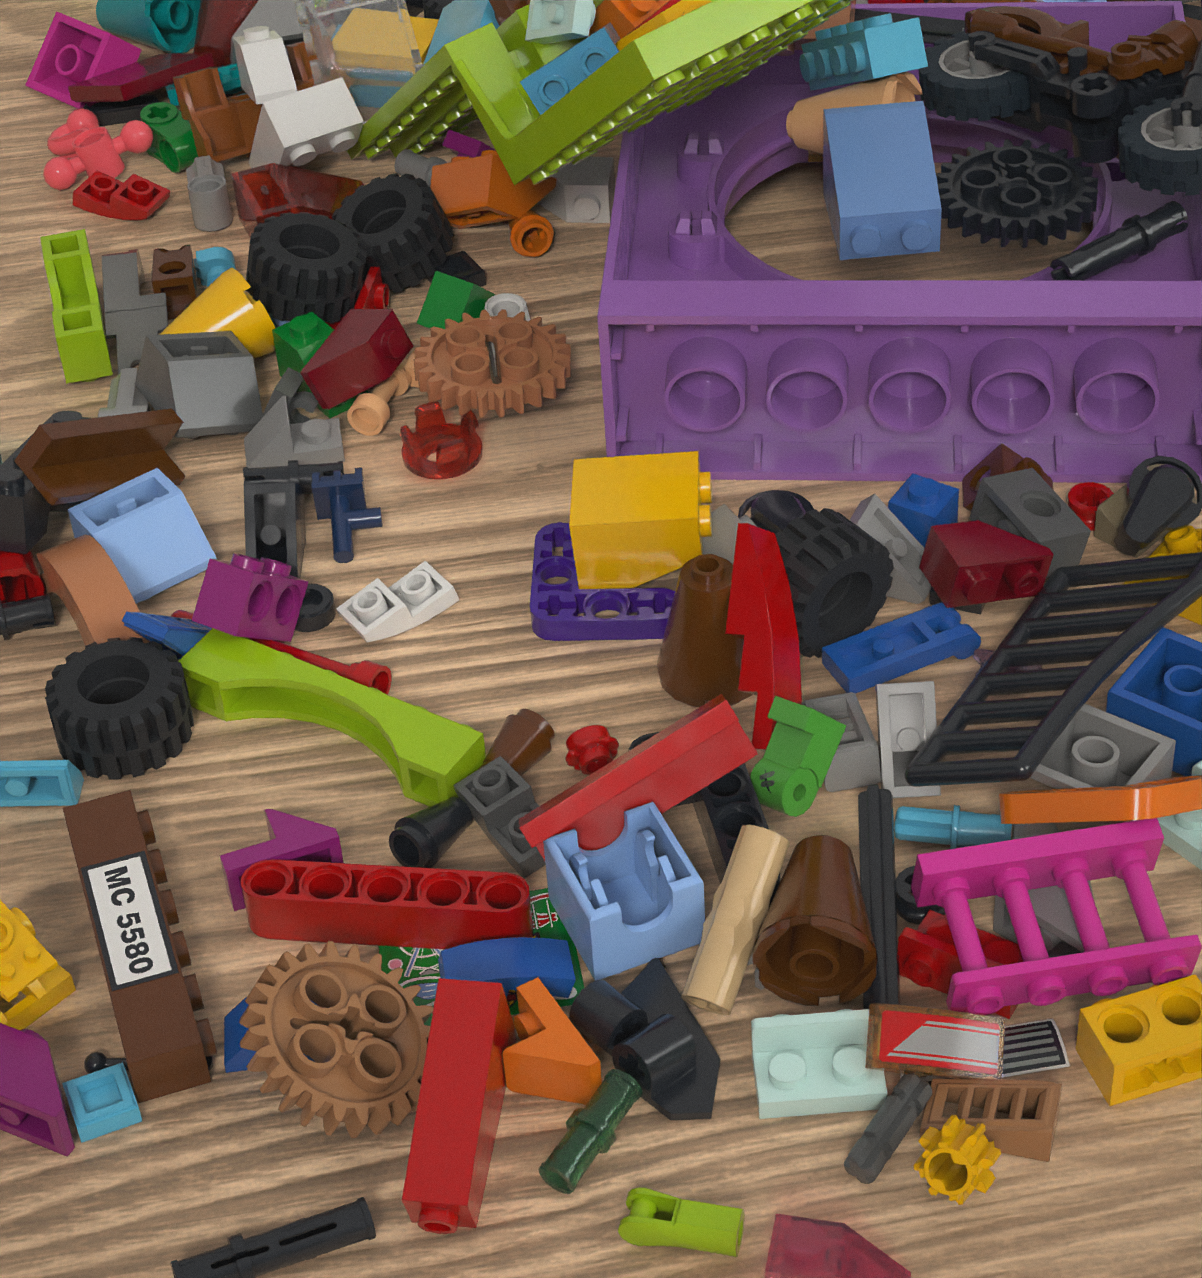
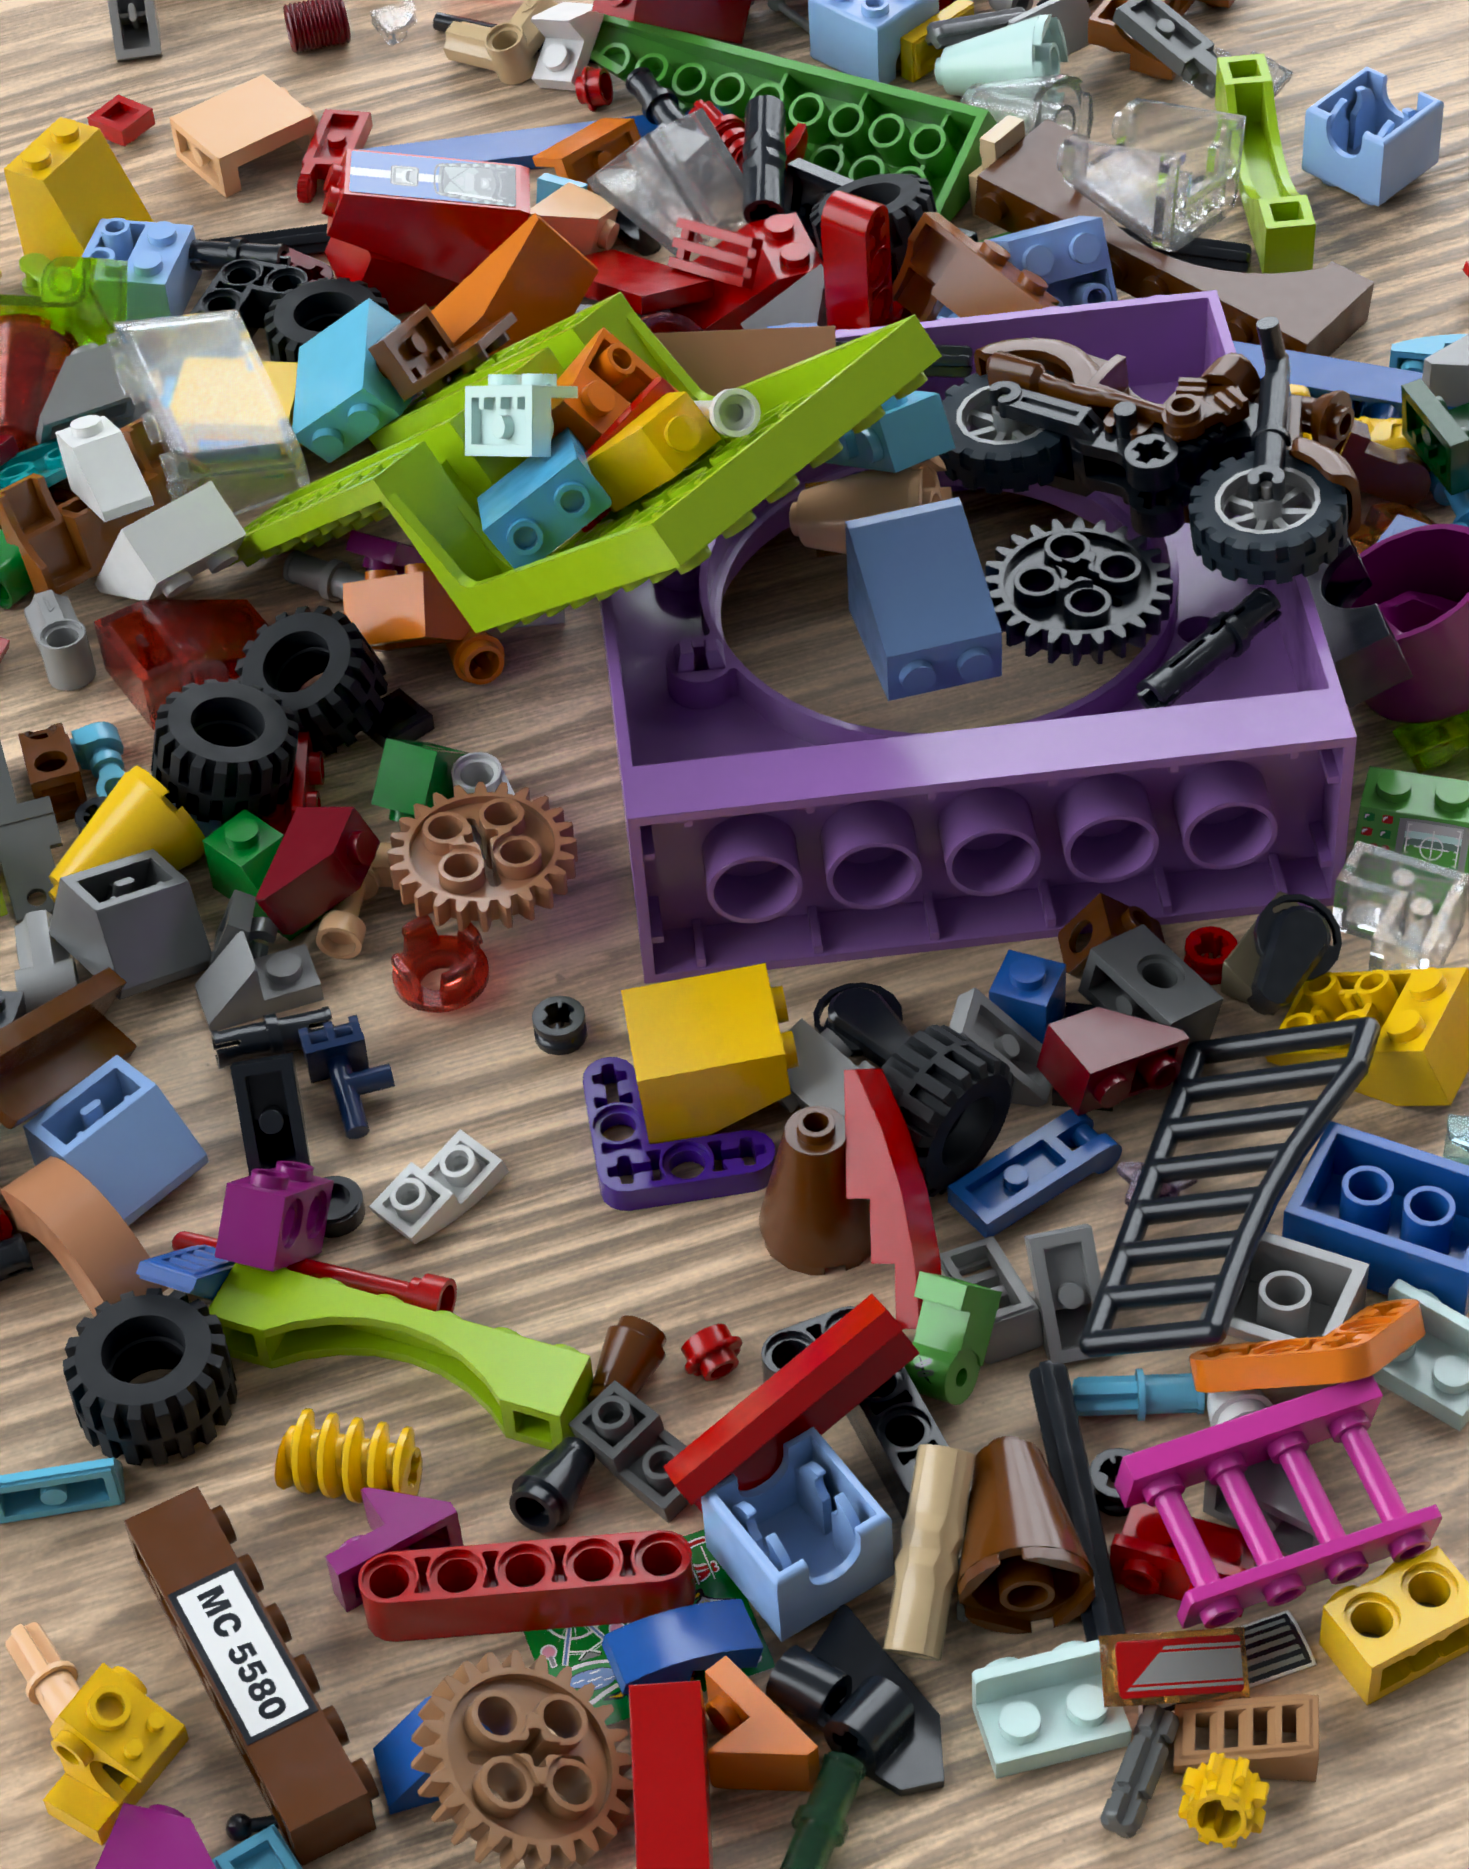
camera: 10 degrees left, 5 degrees up
(248, 784) = (348, 1460): none -> yellow piece
(528, 498) = (561, 1010): none -> black bush

